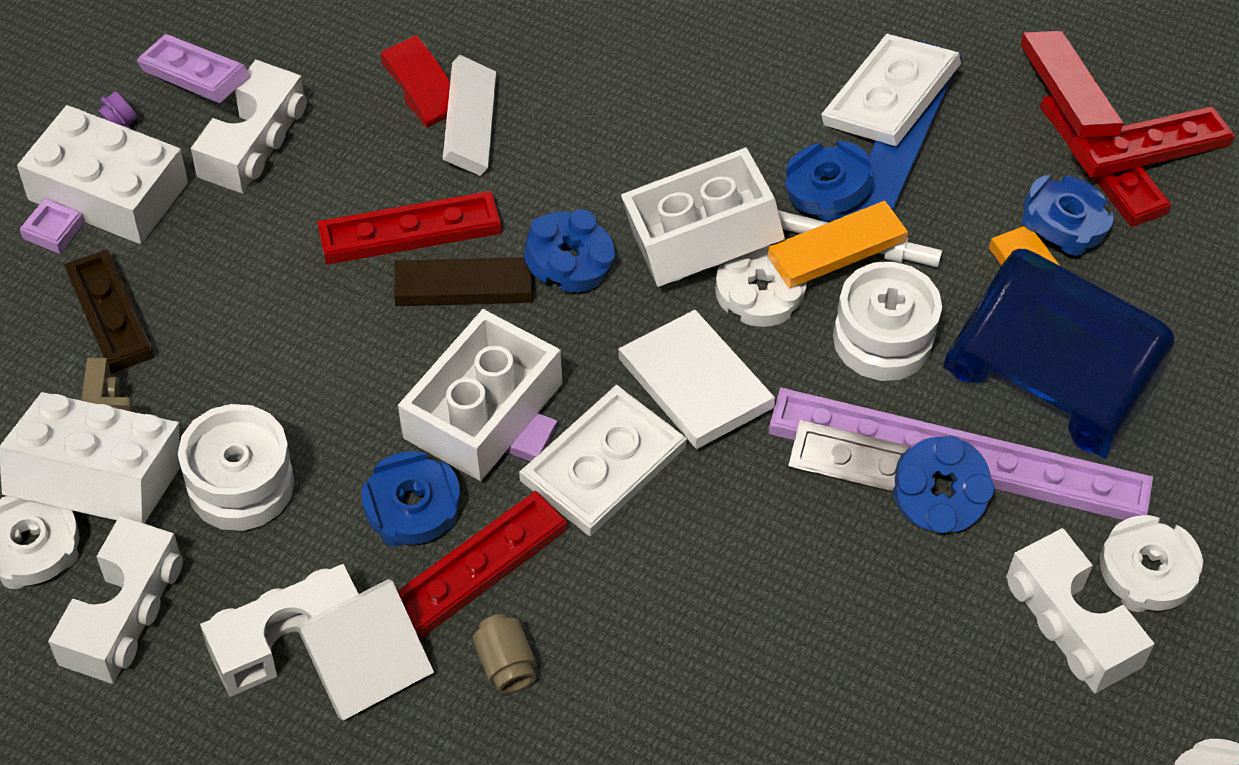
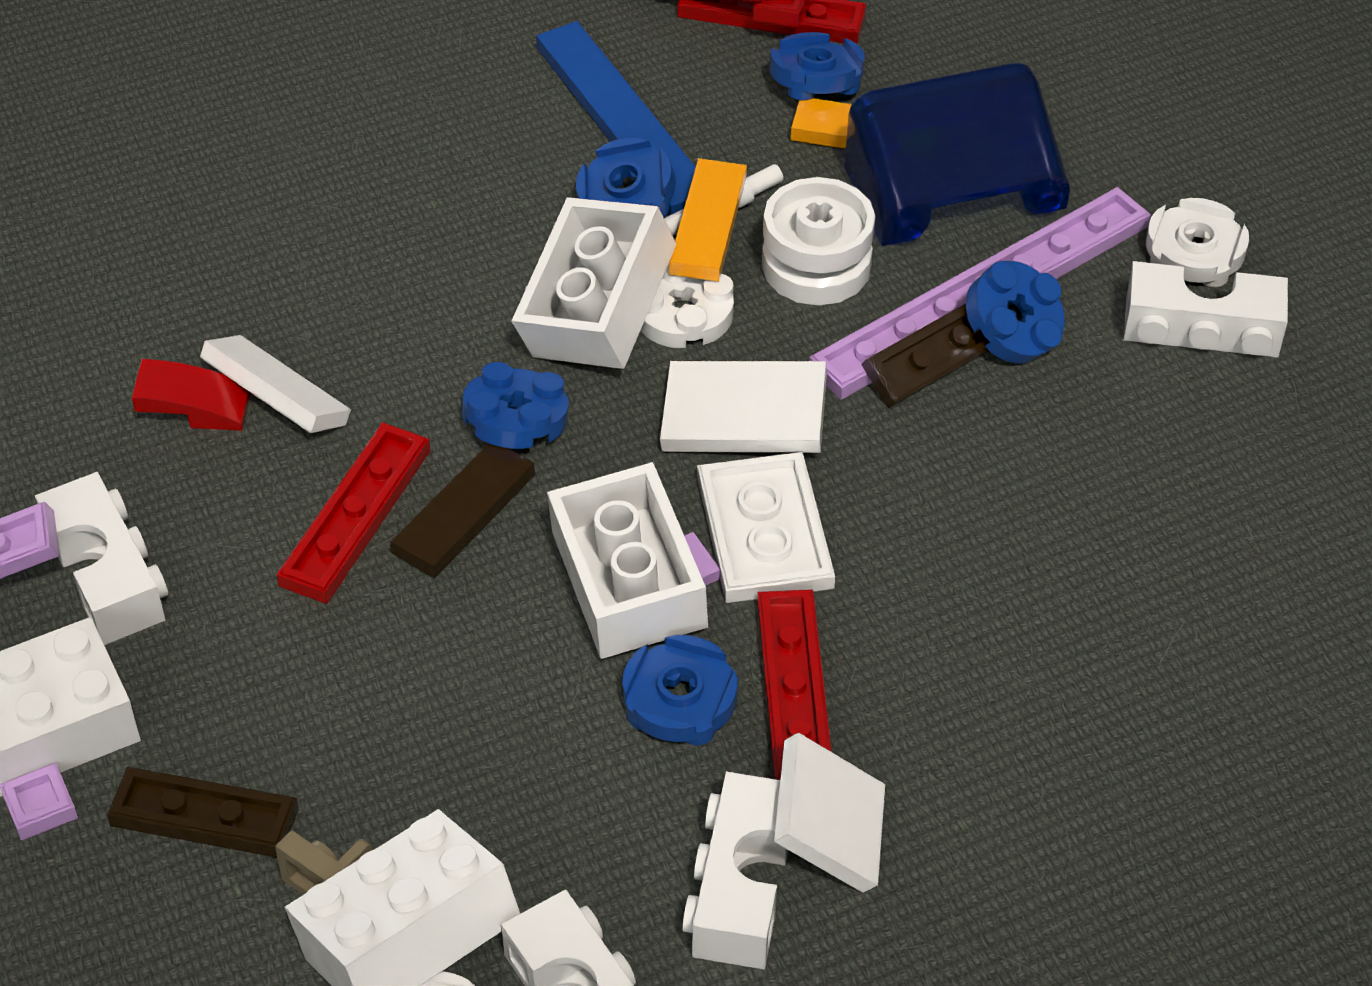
camera: 50 degrees left, 5 degrees down
(236, 467) = (529, 796): white wheel -> none
(505, 654) = (916, 715): dark tan brick -> none
(891, 89) = (570, 85): white tile -> none

